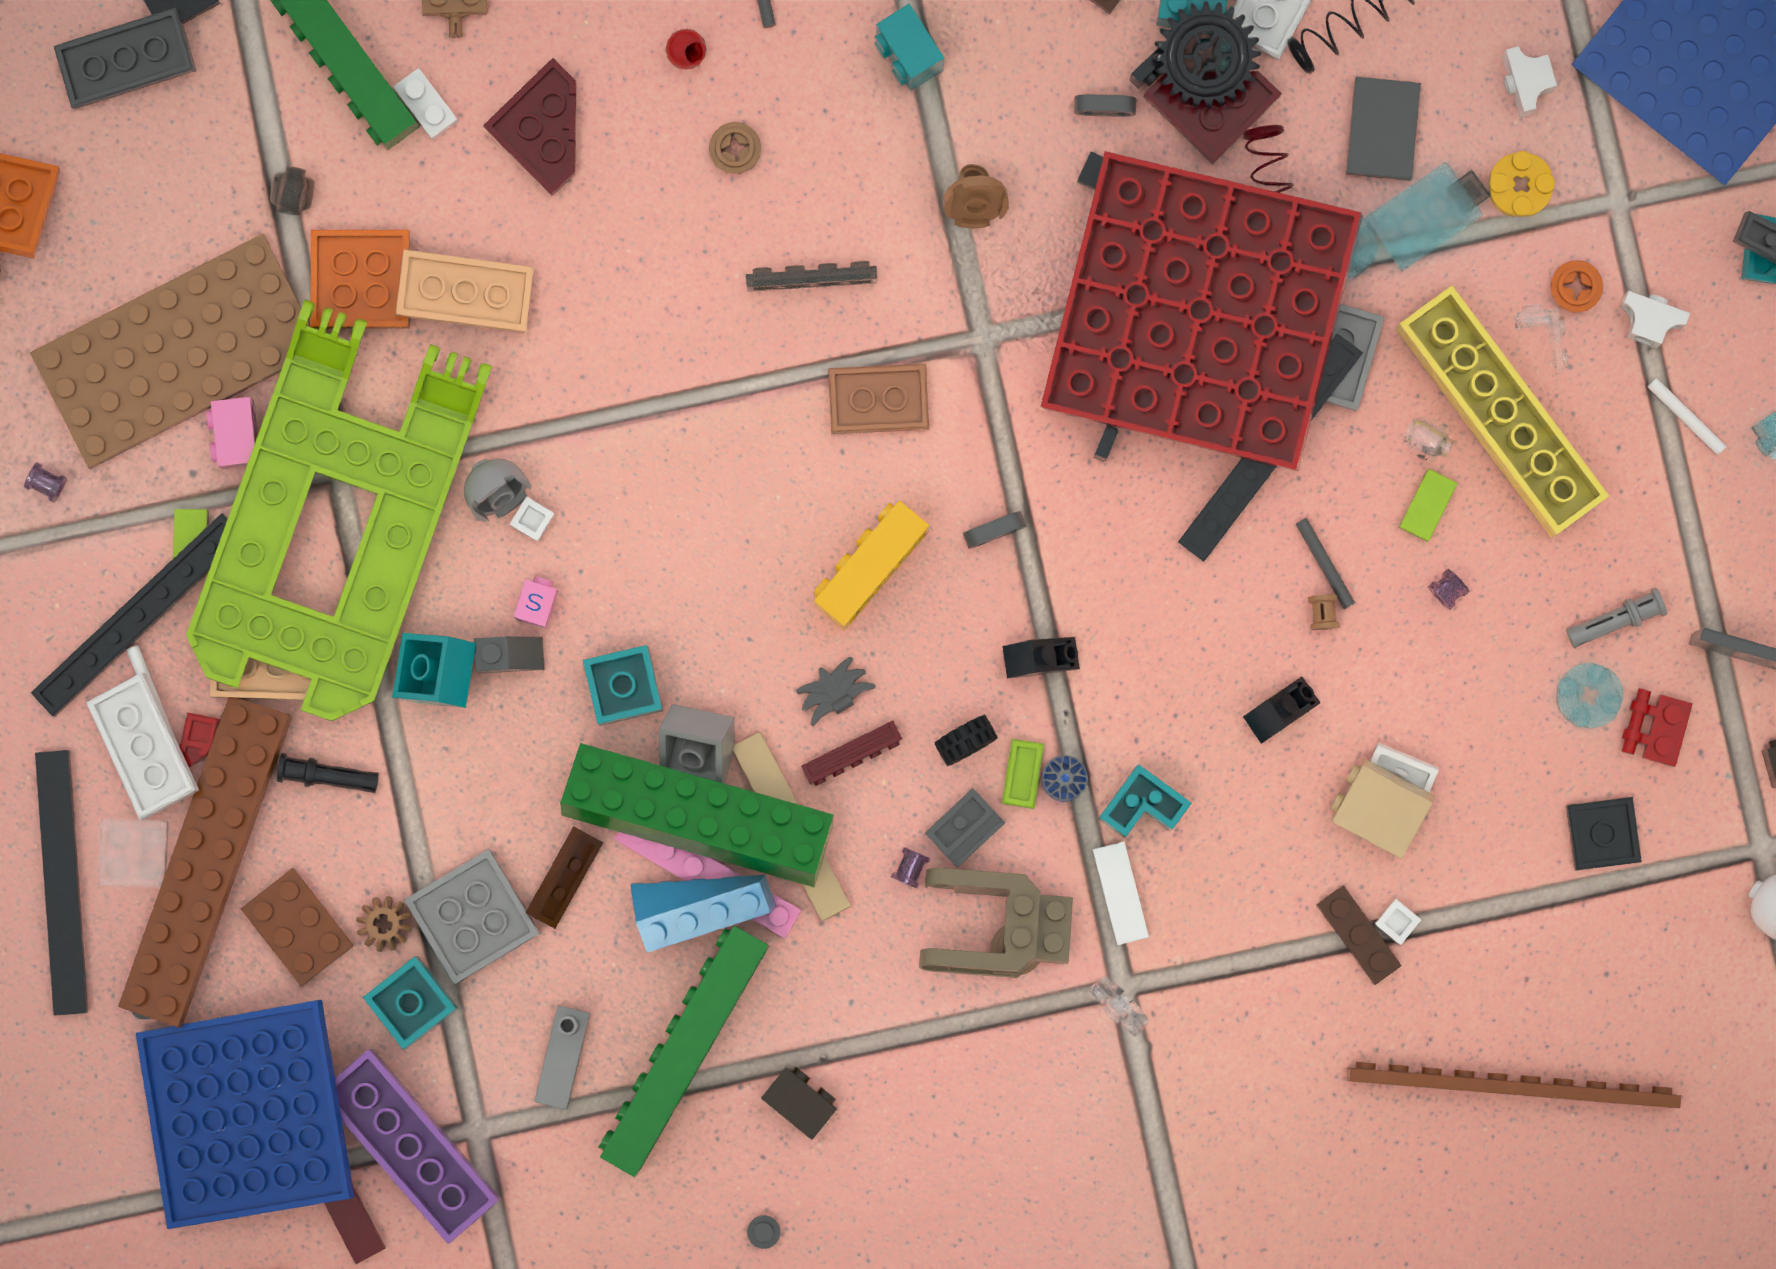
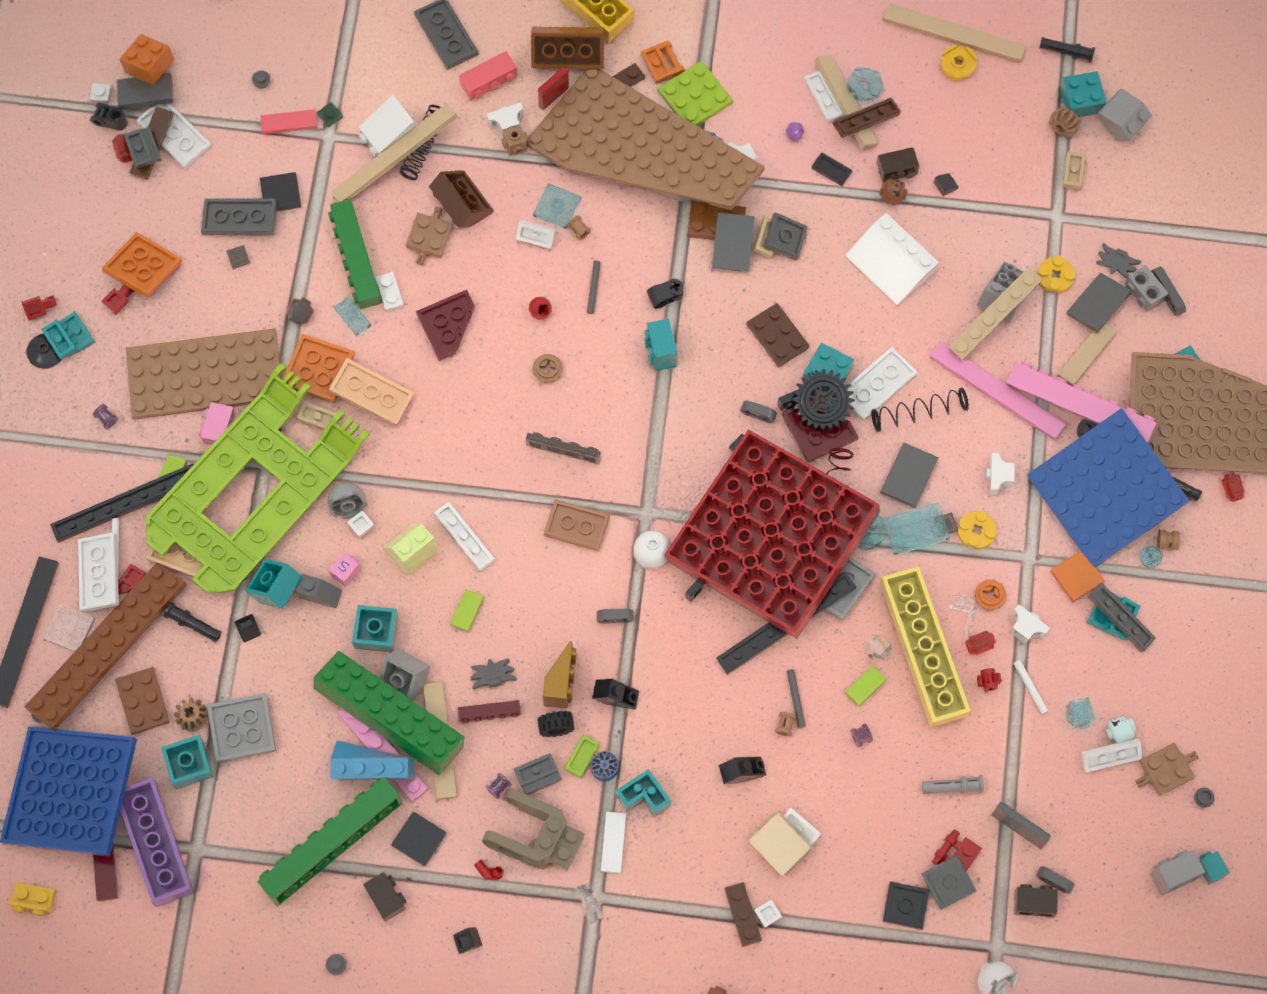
camera: 20 degrees right, 15 degrees down
(150, 129) = (238, 257): none -> clear smoke tile
(380, 167) = (352, 316): none -> clear light blue plate
(391, 362) = (315, 415): none -> tan plate
(416, 751) = (247, 628): none -> black slope
(562, 1057) = (260, 824): light grey piece -> none
(564, 877) = (301, 723): reddish brown plate -> none
(627, 530) = (411, 548): none -> yellowish green slope
(705, 480) = (464, 536): none -> white tile
(755, 601) = (467, 610): none -> lime tile
(817, 993) = (418, 839): none -> black tile
(871, 565) = (538, 609): yellow brick -> none
(946, 675) = (557, 682): none -> pearl gold slope
(947, 1008) = (489, 873): none -> red arm
(950, 1123) = (467, 940): none -> black slope
(975, 198) = (668, 436): medium nougat tile -> none
(1014, 399) = (650, 549): none -> white cylinder
(1586, 373) = (980, 643): none -> clear red brick
(1606, 703) = (931, 815): clear light blue plate -> none
(1619, 429) = (989, 679): none -> red gear
(1659, 776) = (948, 882): none -> dark grey tile
(1704, 207) = (1077, 576): none -> orange tile

